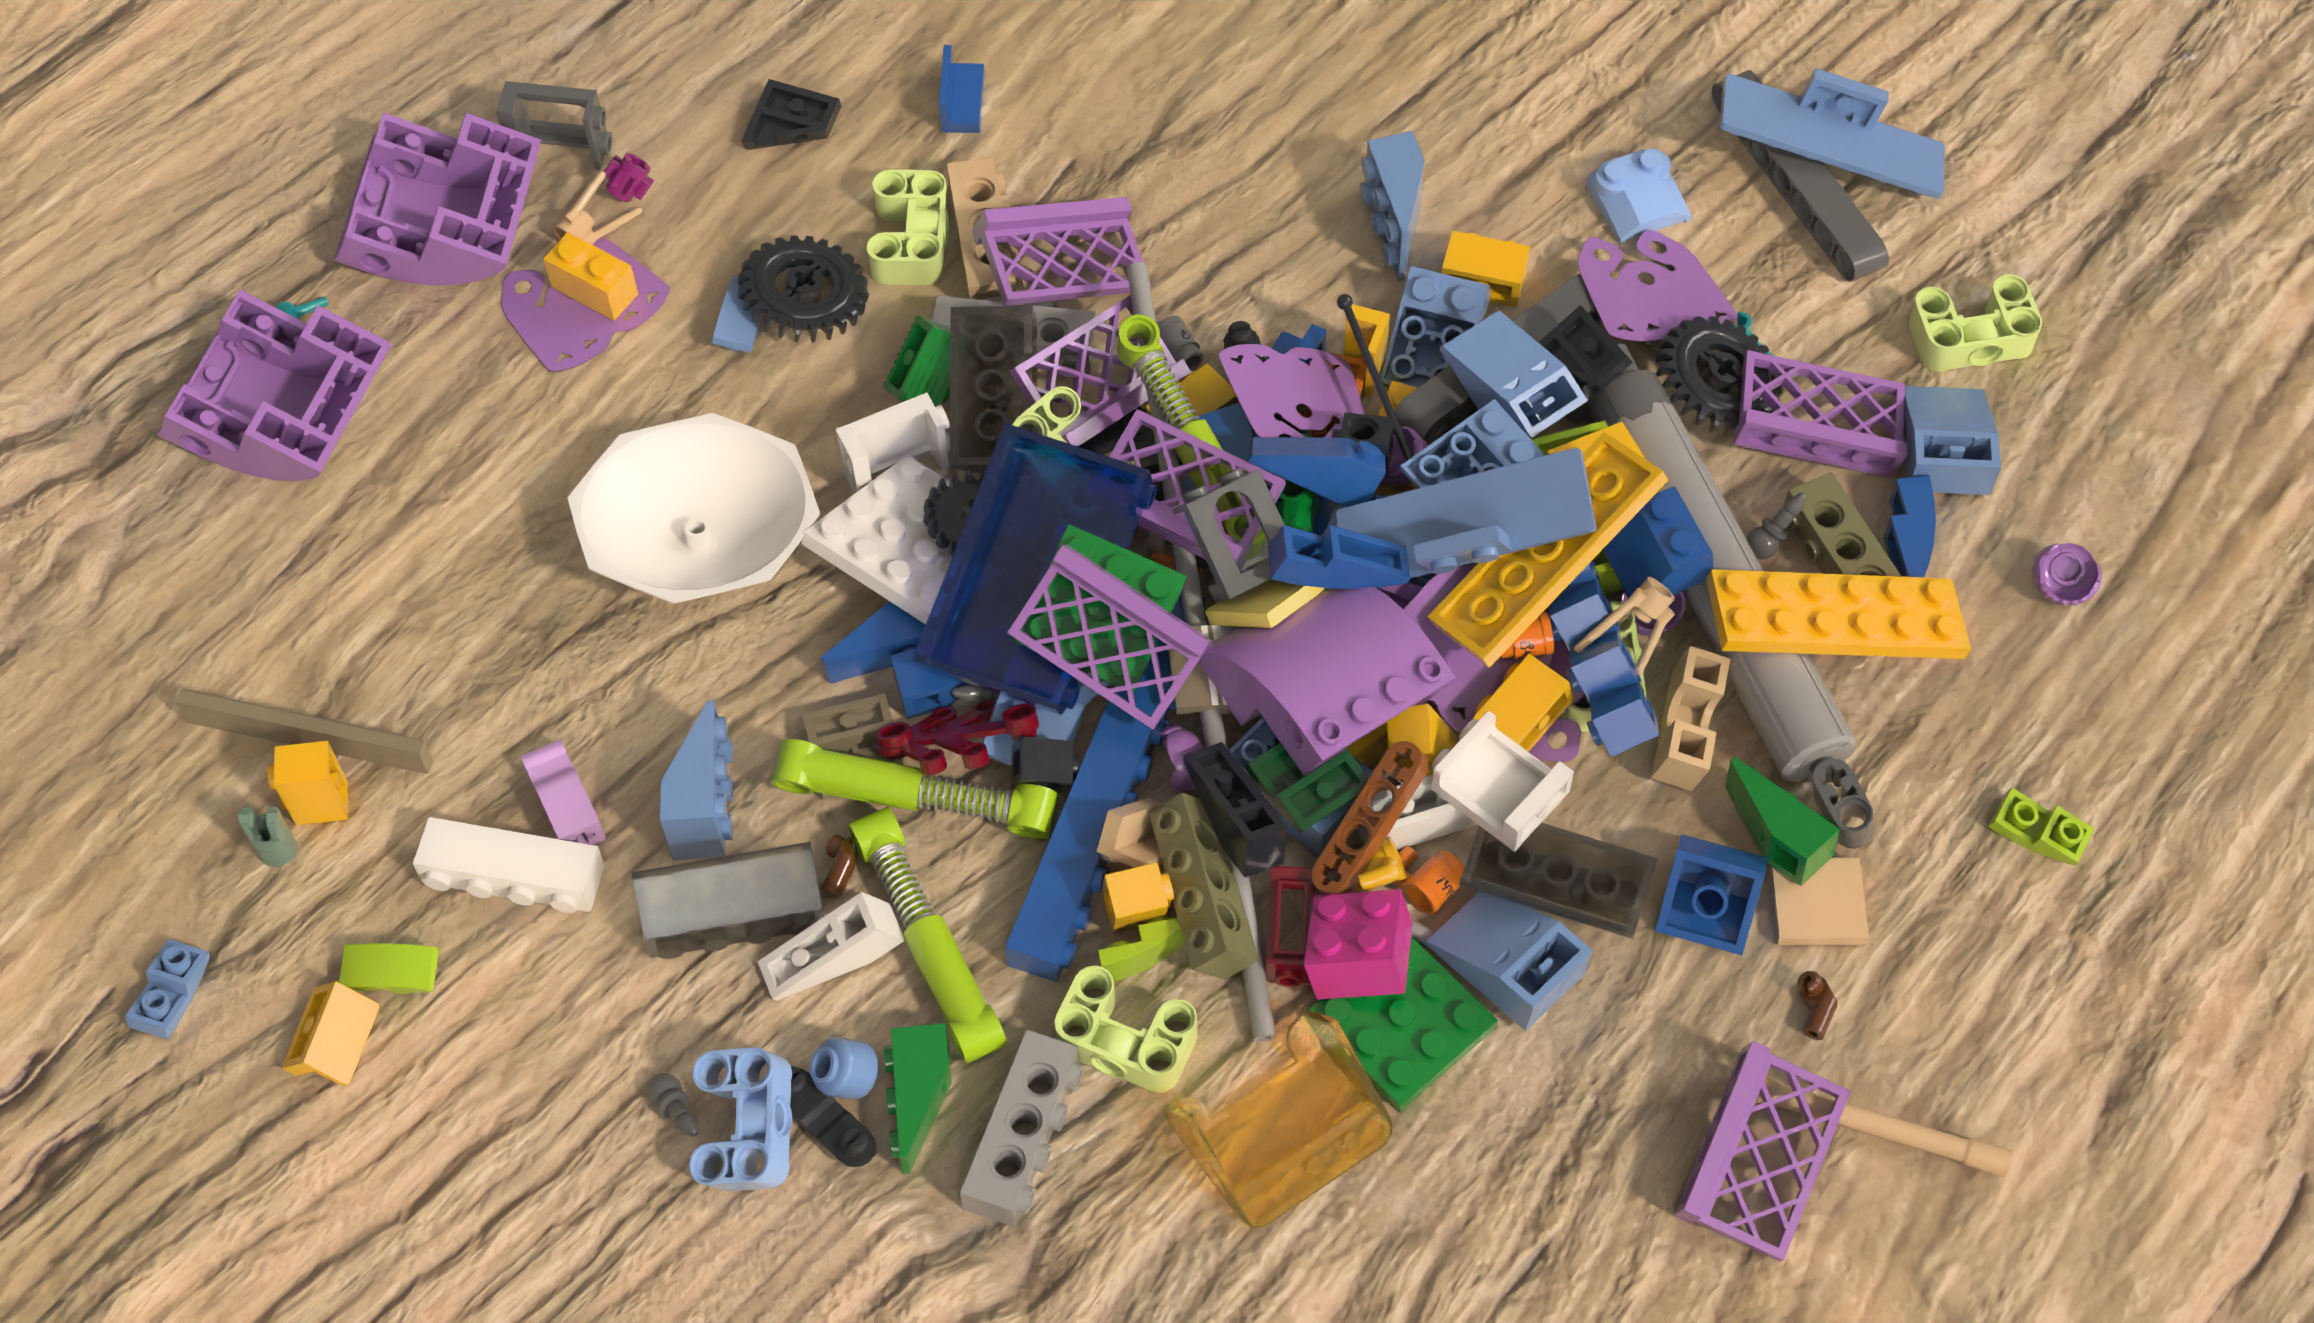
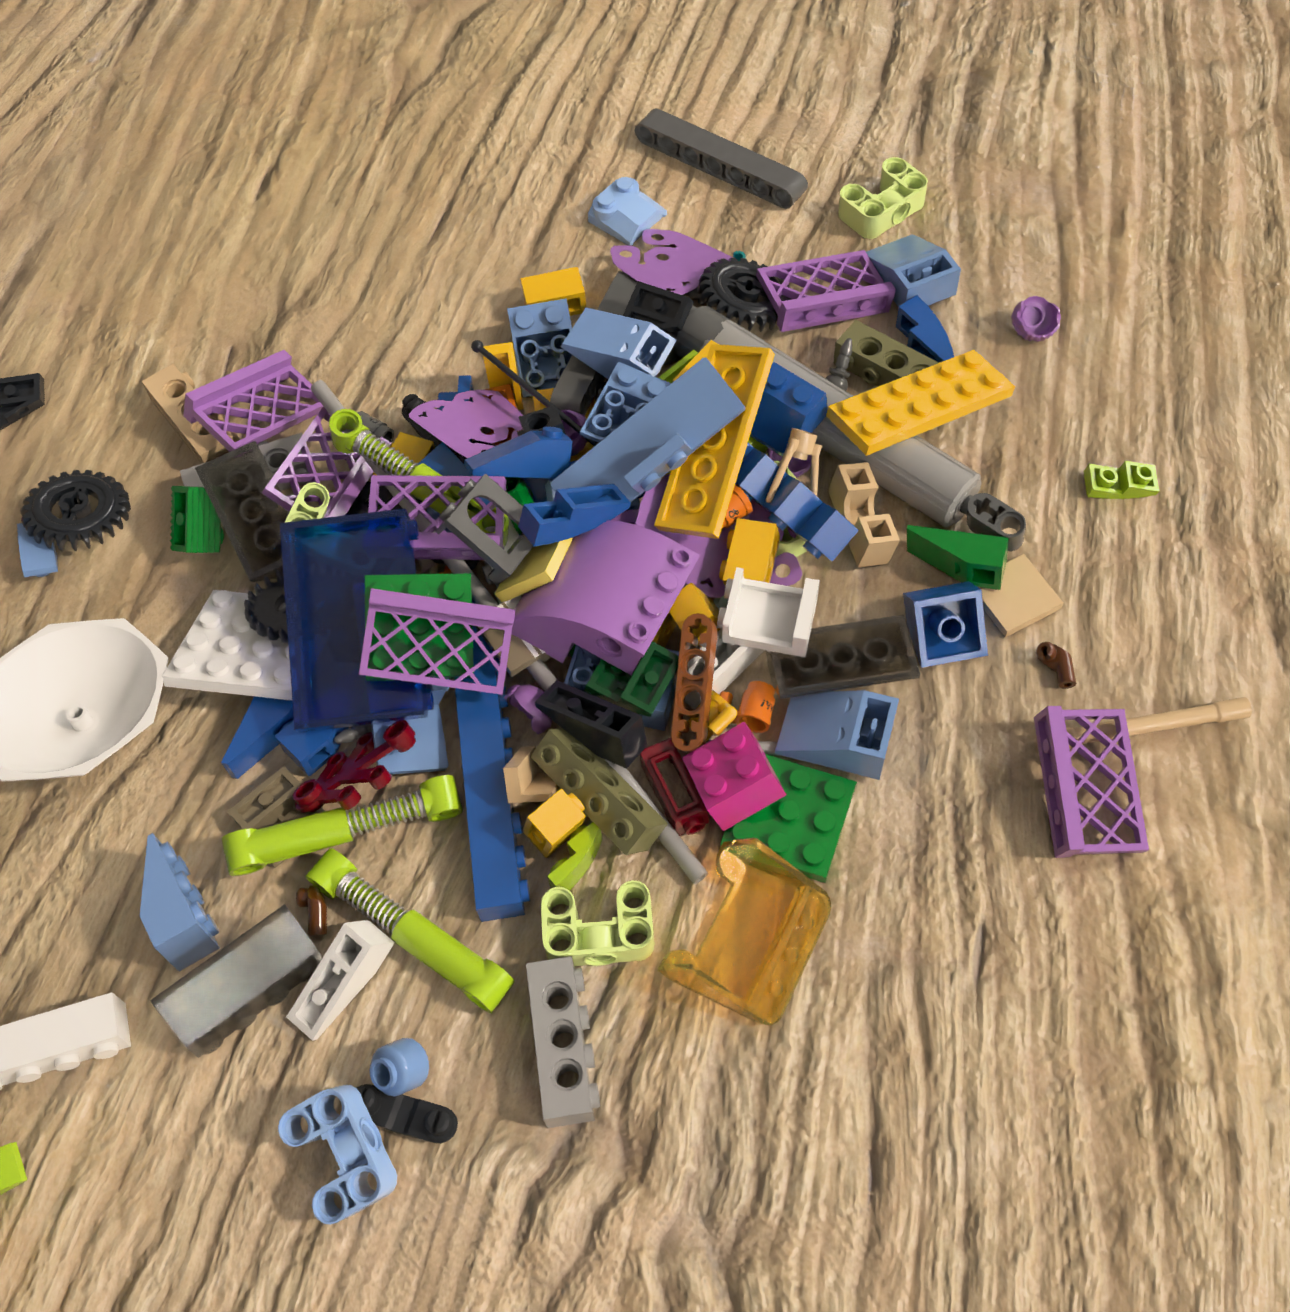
camera: 25 degrees left, 0 degrees up
(563, 795) = (64, 965): lavender piece -> none
(666, 1095) = (266, 1163): dark grey bar -> none
(887, 436) = (194, 578): white panel -> none
(920, 252) = (135, 416): yellowish green beam -> none
(921, 1082) = (463, 1041): green slope -> none
(960, 95) = (129, 337): blue panel -> none
(1044, 763) = (431, 758): black brick -> none
(1394, 192) = (467, 272): medium blue slope -> none
(1834, 125) = (727, 114): medium blue bracket -> none

